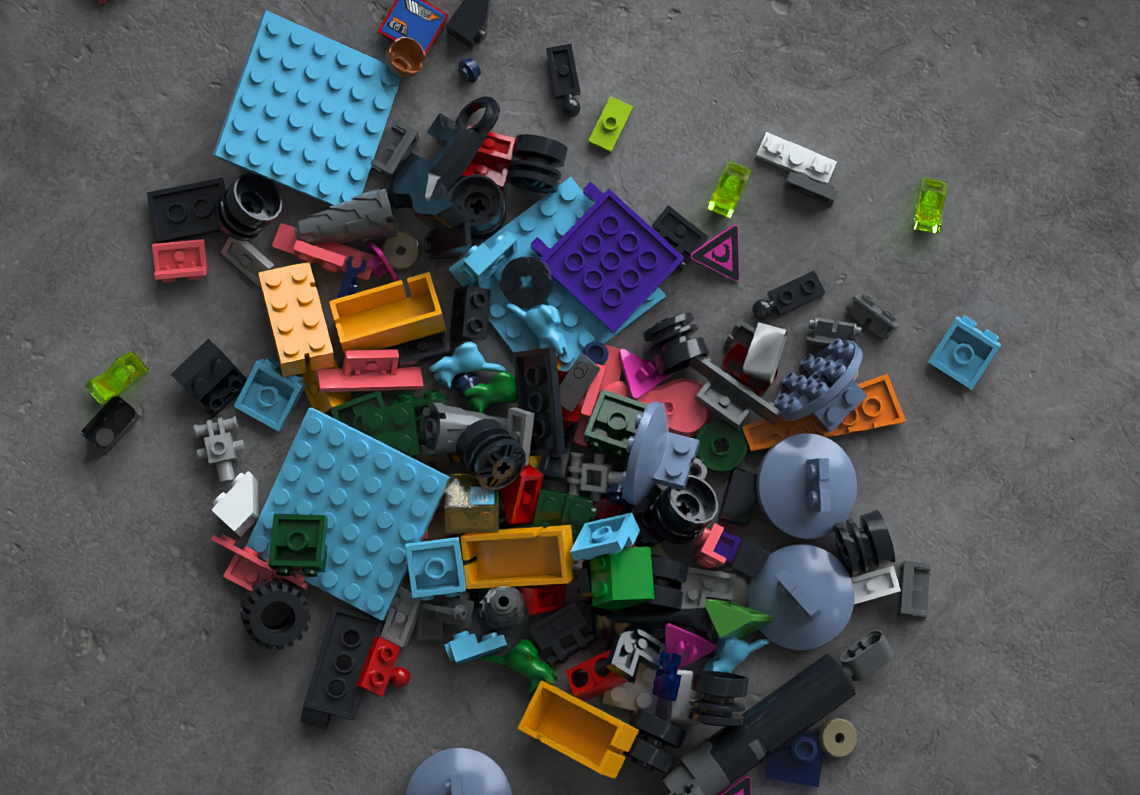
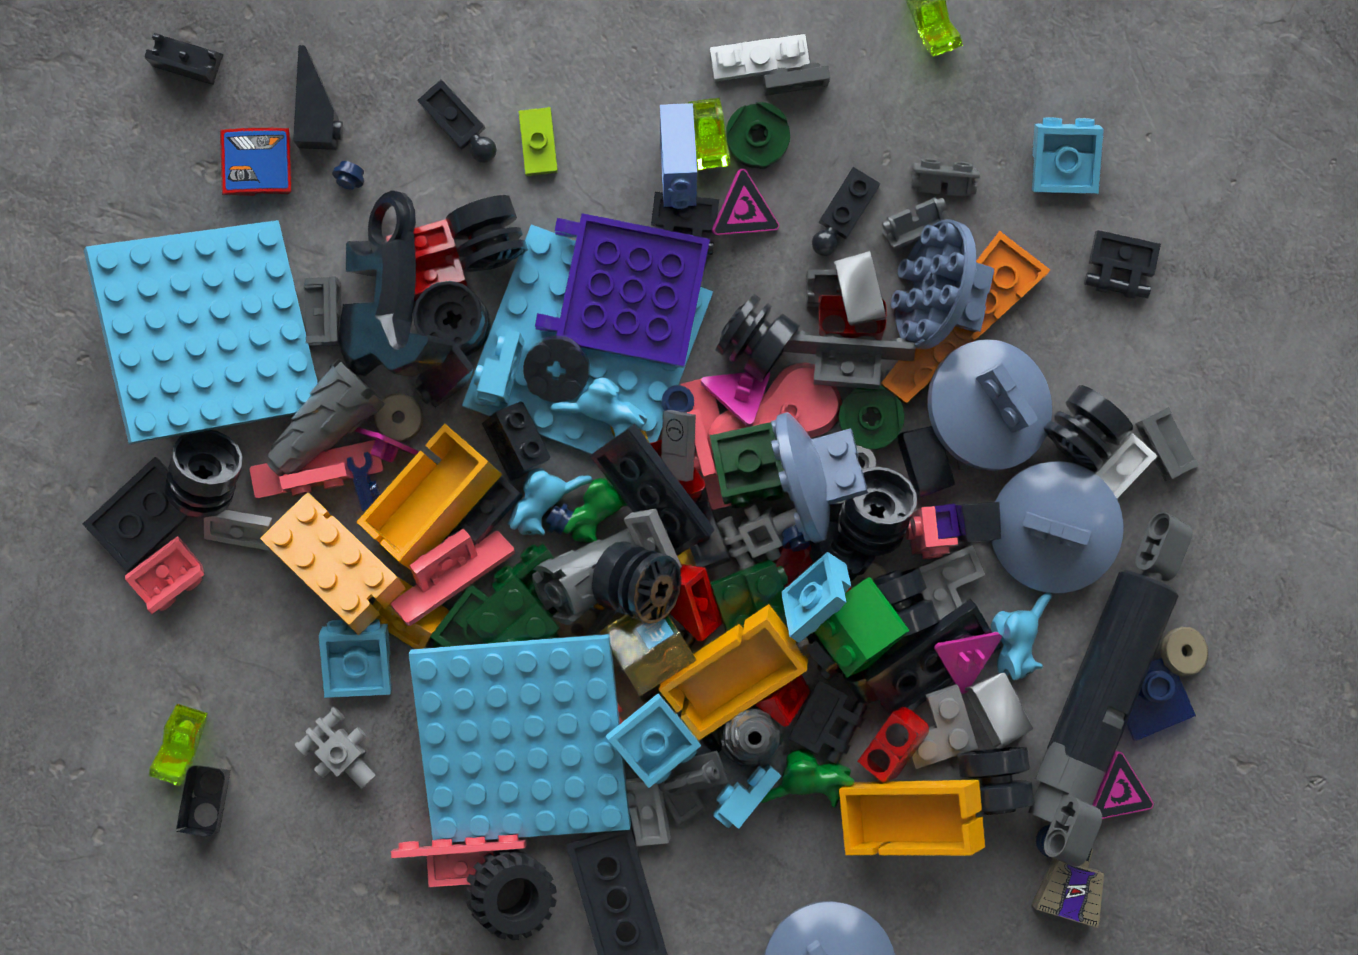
camera: 30 degrees left, 5 degrees up
(210, 378) = (279, 683): black slope -> none
(240, 505) = (400, 801): white slope -> none
(298, 544) = (490, 806): dark green plate -> none
(379, 668) = (659, 882): red plate -> none
(405, 57) = (271, 204): dark orange hair -> none
(634, 647) = (914, 695): black plate -> none
(667, 680) = (971, 705): clear blue plate -> none
(697, 189) = (678, 155): none -> window
(717, 697) = (1040, 692): black wheel -> none
(734, 619) = (1001, 594): bright green slope -> none
(766, 196) = (753, 117): none -> dark green plate
(964, 442) = (1122, 254): none -> black plate

